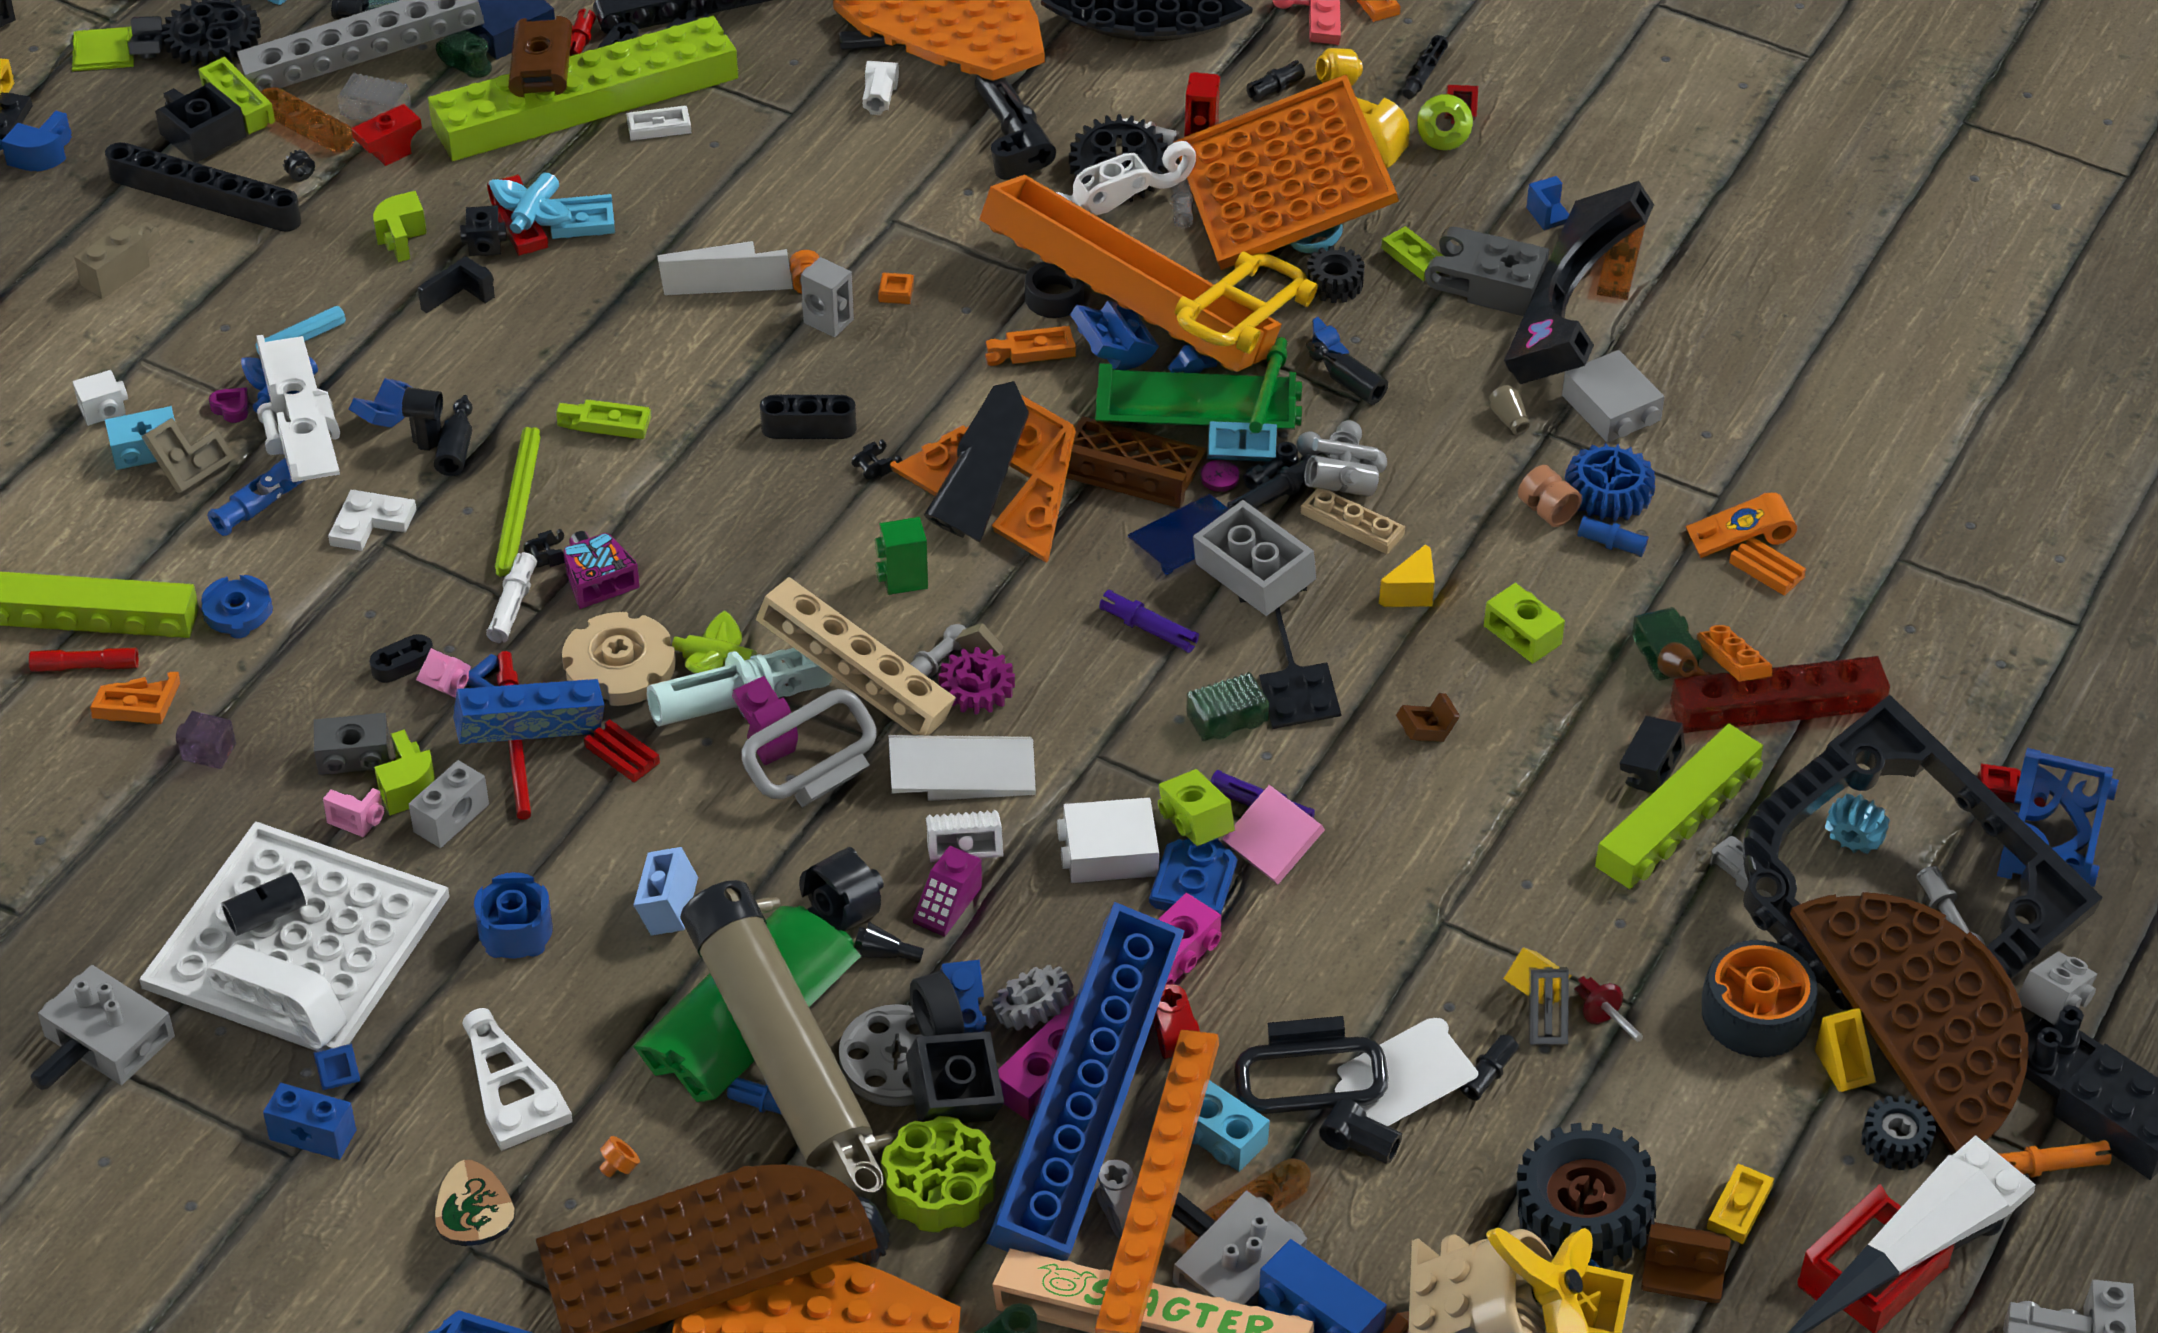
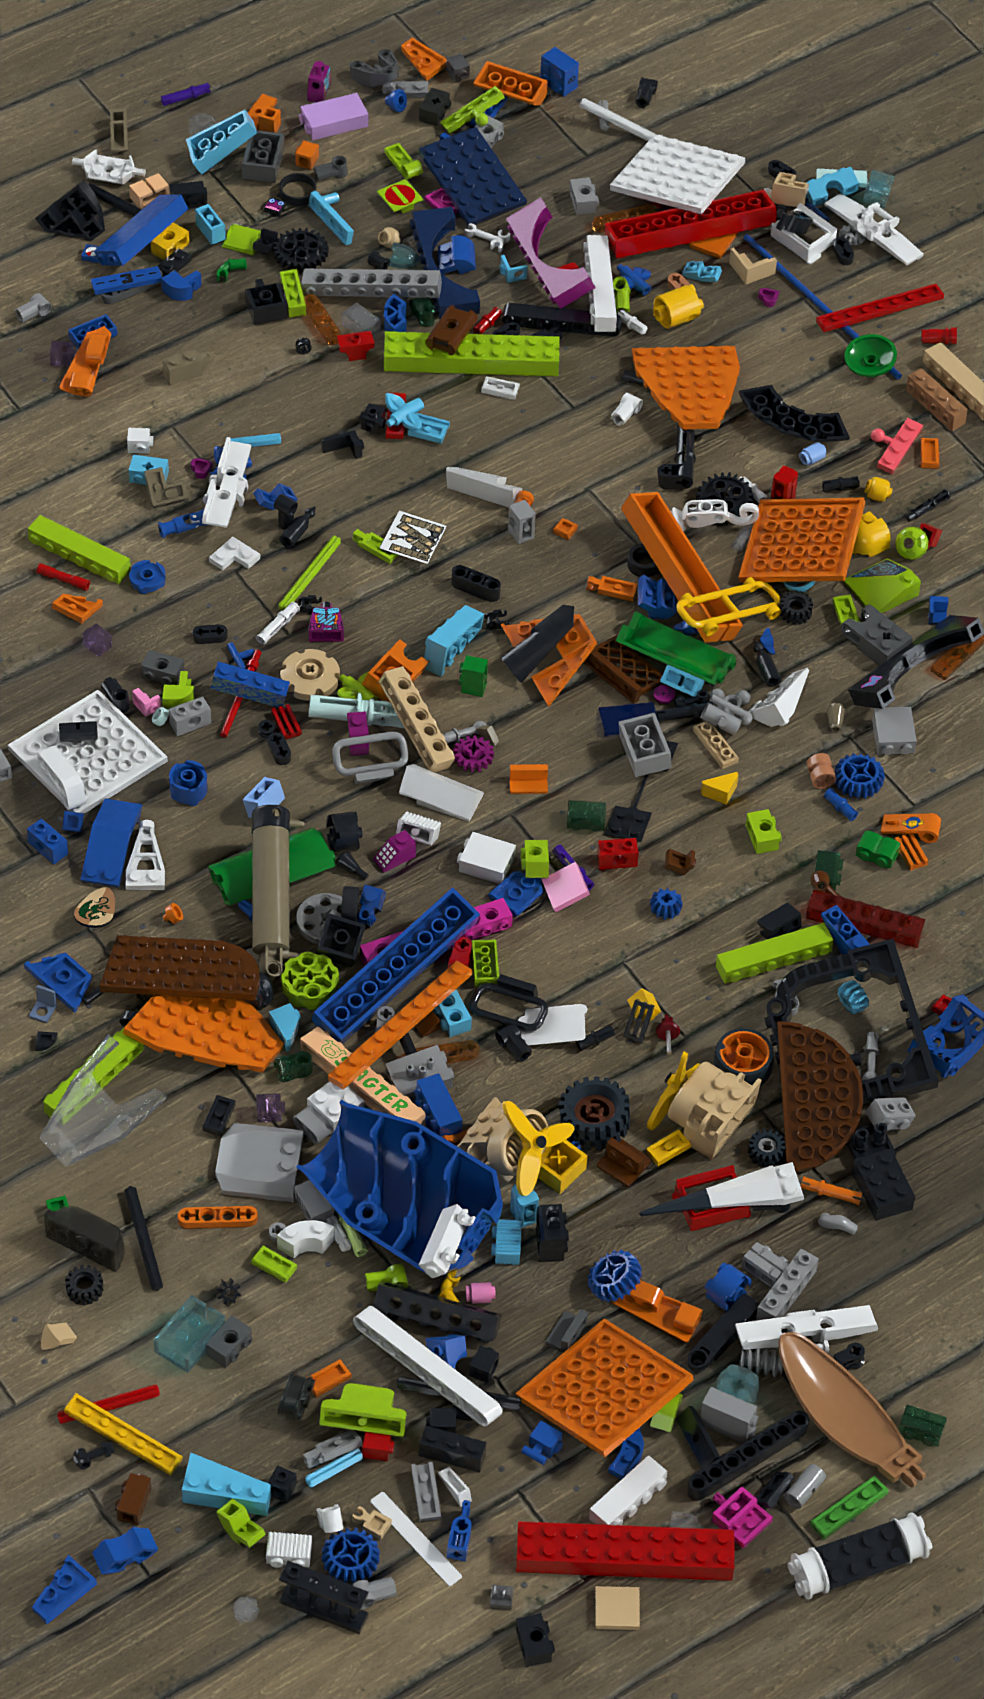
camera: 25 degrees right, 5 degrees up
(39, 40) = (210, 224): none -> medium azure brick
(104, 90) = (229, 265): none -> green piece
(203, 186) = (249, 340): black beam -> none
(292, 817) = (115, 693): none -> black piece
(394, 824) = (160, 716): none -> light aqua tile
(398, 220) = (334, 395): lime brick -> none
(426, 72) = (395, 315): none -> blue brick
(430, 1077) = (110, 842): none -> blue windscreen
(444, 673) = (224, 650): bright pink bracket -> none
(595, 766) = (266, 723): none -> black bush
(640, 796) = (282, 747): none -> black beam
(659, 384) = (413, 537): none -> sticker
(751, 584) = (393, 659): none -> orange brick
(824, 516) = (451, 638): none -> medium azure wedge
(943, 1269) = (285, 1024): none -> medium azure slope
(1033, 997) = (400, 917): light grey gear -> none
(1092, 686) = (528, 779): none -> orange panel
(1136, 615) = (573, 751): dark purple pin -> none
(1198, 1164) = (428, 1024): none -> reddish brown slope
(1206, 52) = (812, 453): none -> light blue brick
(1223, 1012) = (485, 961): none -> lime piece
(1276, 359) = (732, 642): green bar -> none
(1321, 747) = (617, 853): none -> red brick
(1413, 418) = (781, 701): none -> white wedge
(1444, 194) = (884, 585): none -> lime slope
(1453, 796) = (666, 903): none -> blue gear
(1719, 580) = (878, 849): none -> green brick
(1734, 653) = (854, 889): orange tile -> none
(1766, 1097) = (705, 1104): none -> tan brick
(1787, 737) = (842, 930): none -> blue slope
(1845, 1050) = (768, 1100): yellow slope -> none
(2100, 1210) = (837, 1222): none -> light grey arm

